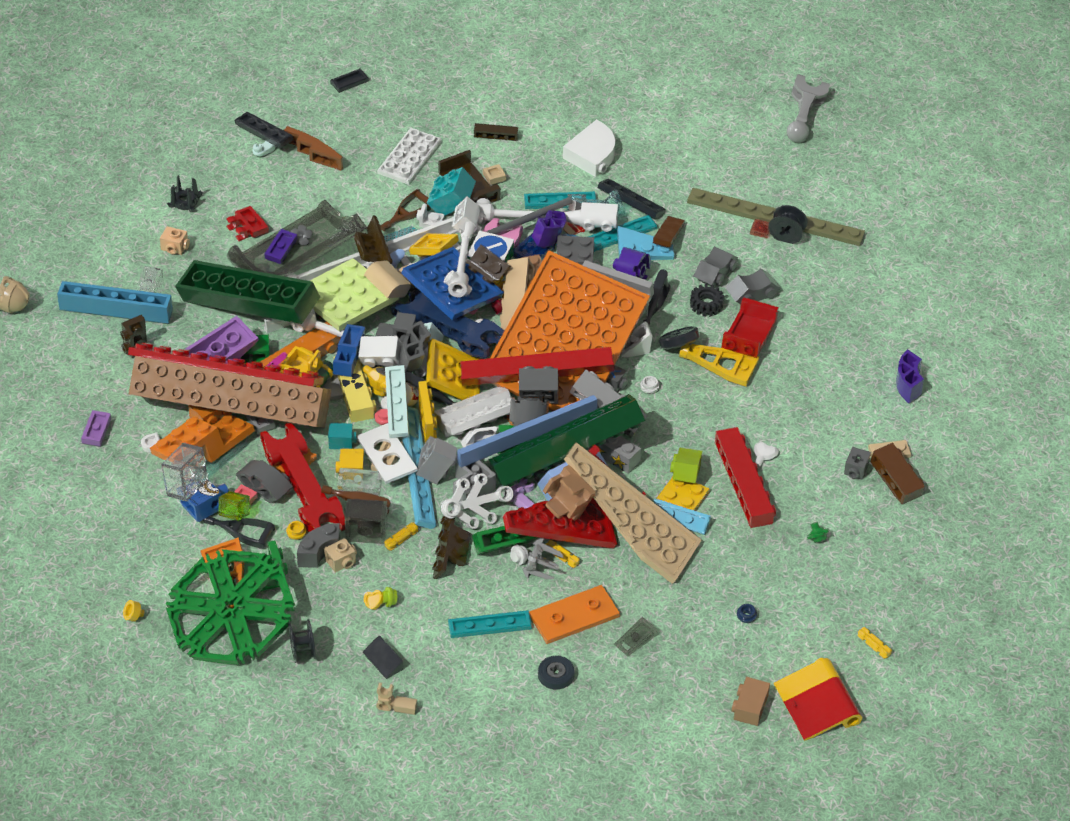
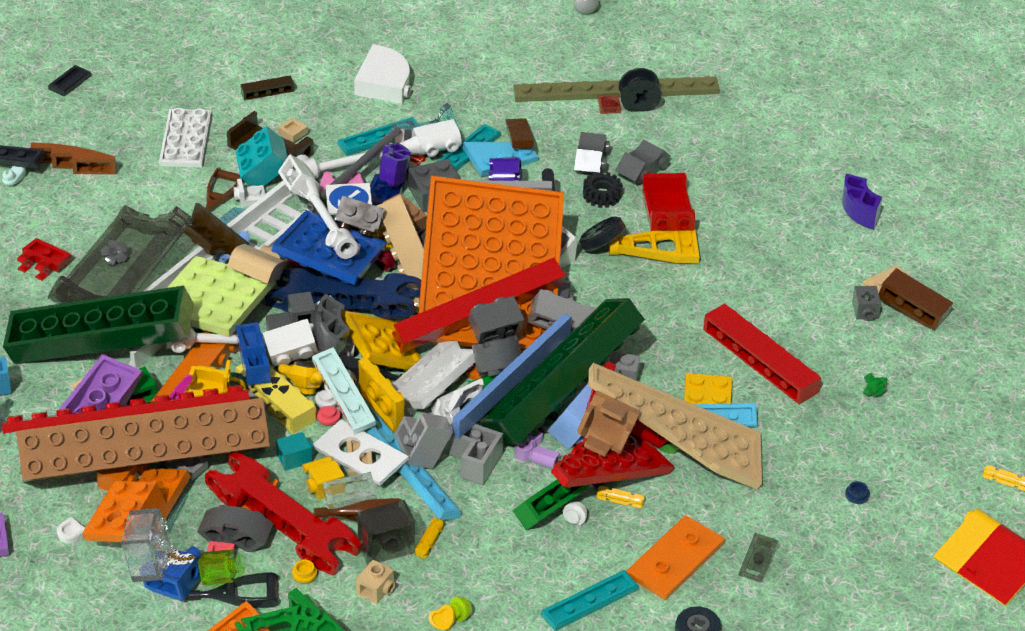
camera: 25 degrees left, 5 degrees down
(280, 246) = (99, 270): dark purple plate -> none
(312, 546) = (342, 578): dark grey brick -> none
(433, 243) = (277, 216): yellow plate -> none
(452, 546) = (492, 528): dark brown bracket -> none
(472, 501) = (478, 484): white plant -> none
(534, 557) = (598, 508): light grey piece -> none
(632, 198) = (460, 113): black tile -> none
(649, 384) = (598, 291): white plate -> none
(686, 465) = (697, 359): lime brick -> none
(751, 701) = (927, 582): medium nougat brick -> none
(764, 453) = (763, 322): white rock -> none

